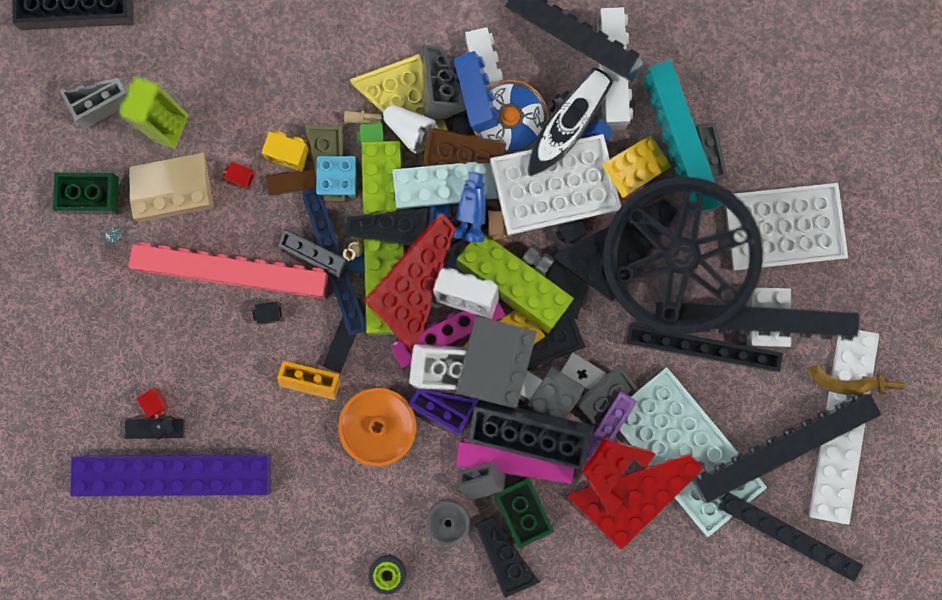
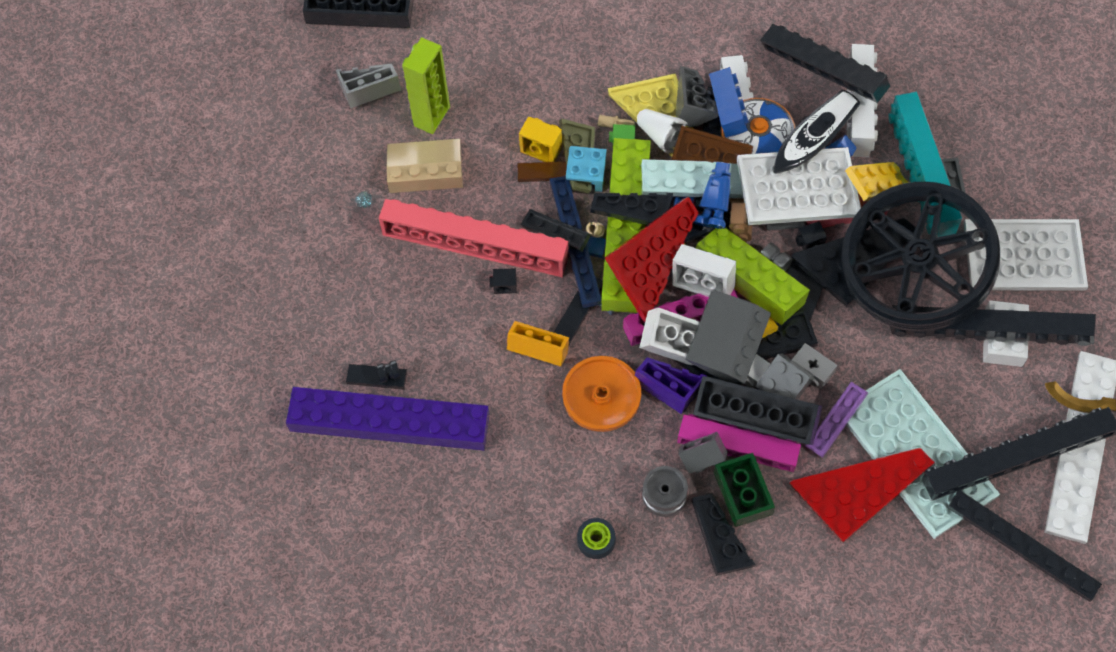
camera: 10 degrees right, 20 degrees down
(86, 193) = (344, 159): dark green brick -> none
(153, 403) = (379, 350): red brick -> none
(239, 175) = (492, 159): red brick -> none
(601, 396) = (831, 386): dark grey tile -> none
(607, 467) = (833, 447): red wing -> none
(703, 348) = (938, 354): black brick -> none

